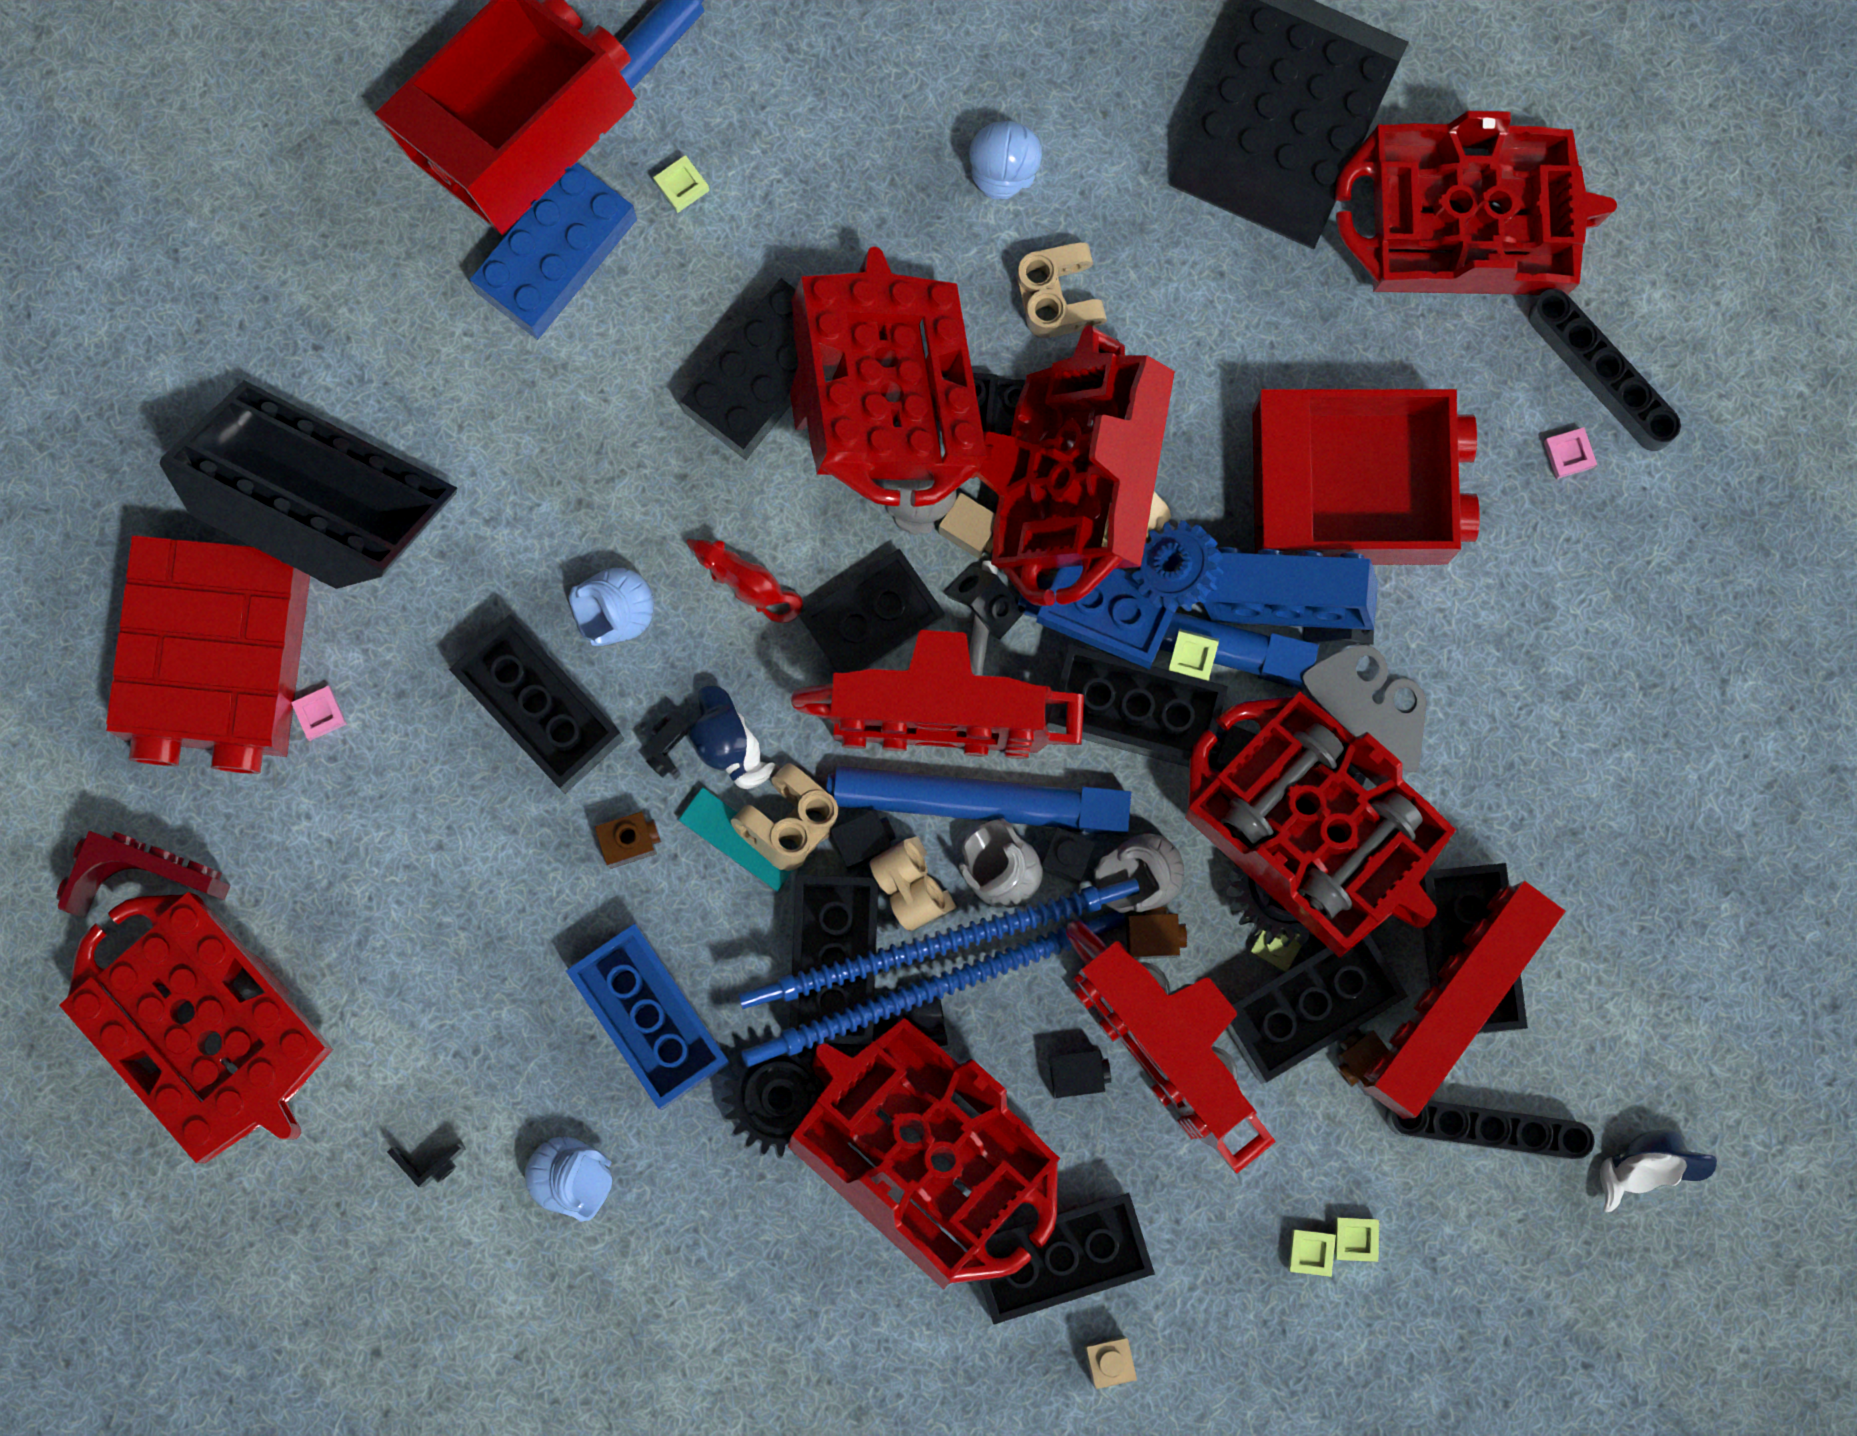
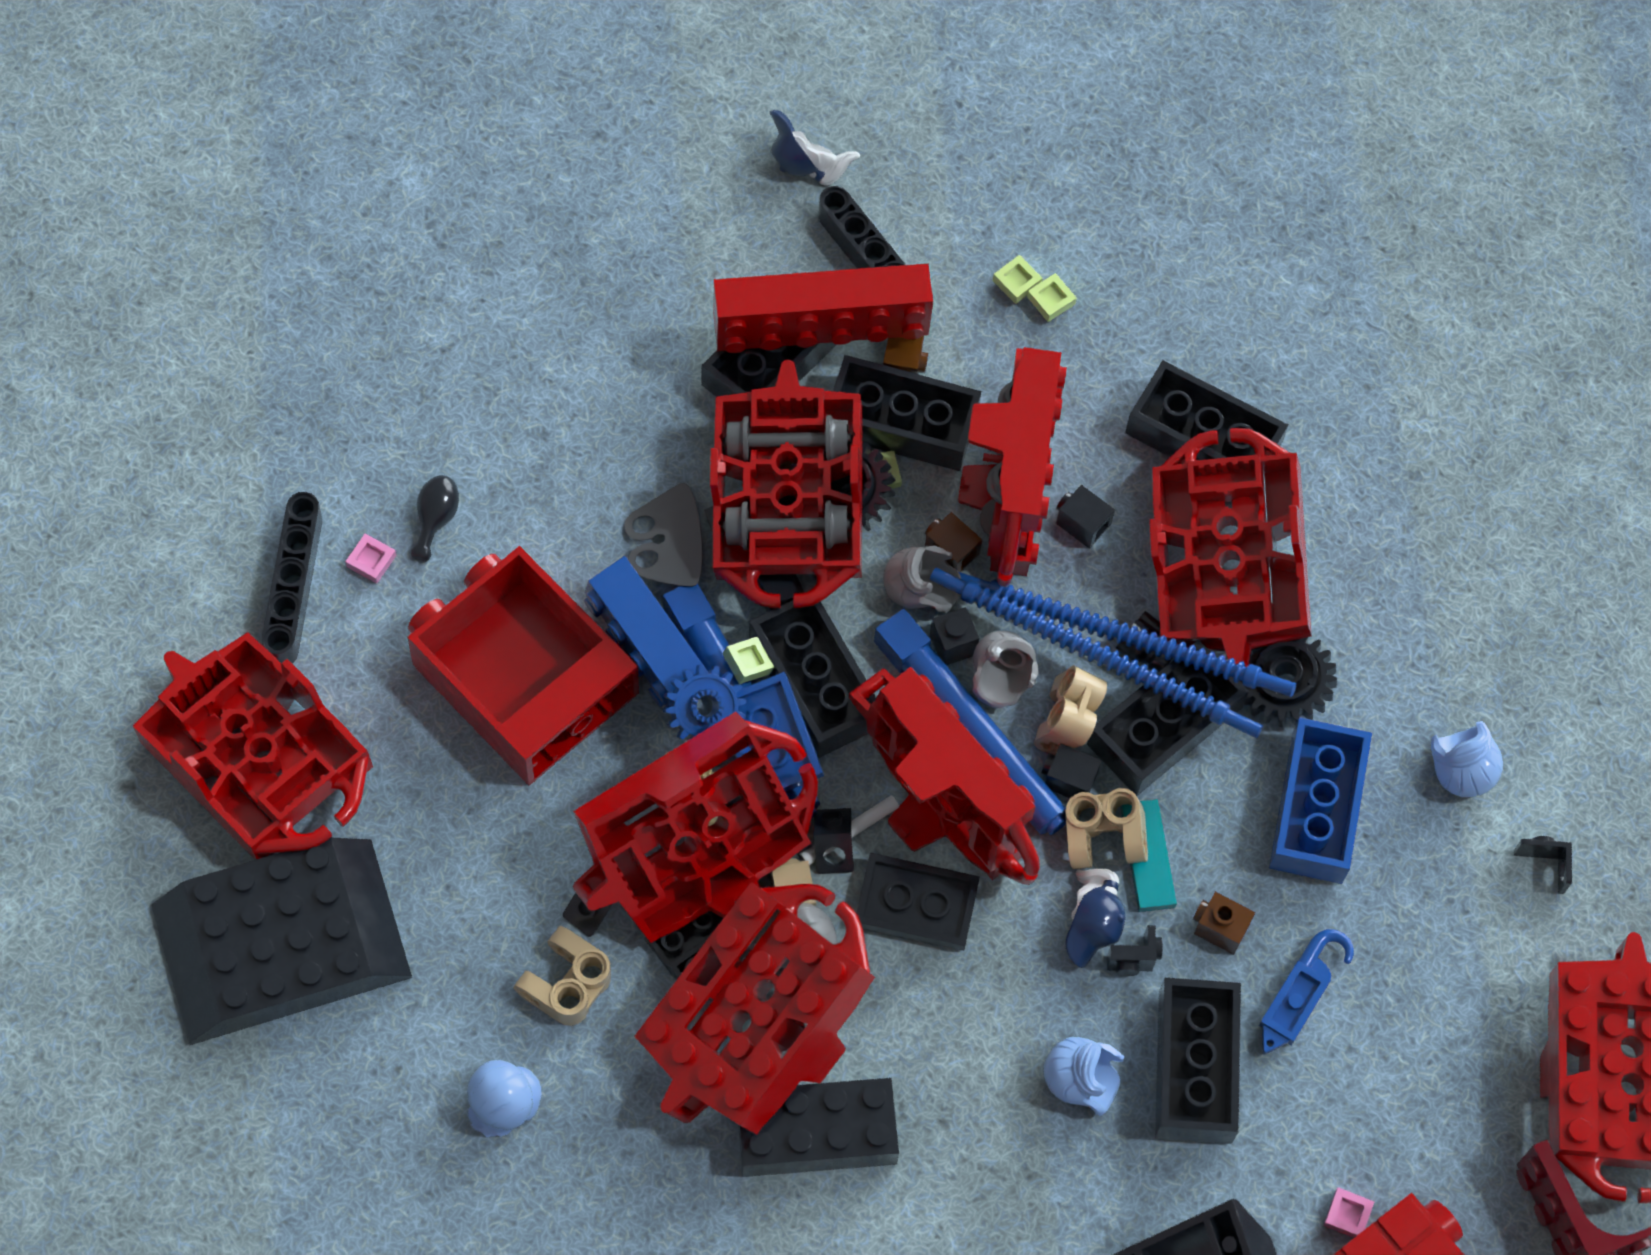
camera: 135 degrees left, 15 degrees down
(516, 848) = (1301, 992): none -> blue plate
(749, 580) = (973, 1004): red animal -> none
(1110, 1362) = (1235, 352): tan brick -> none
(1569, 541) = (435, 507): none -> black piece

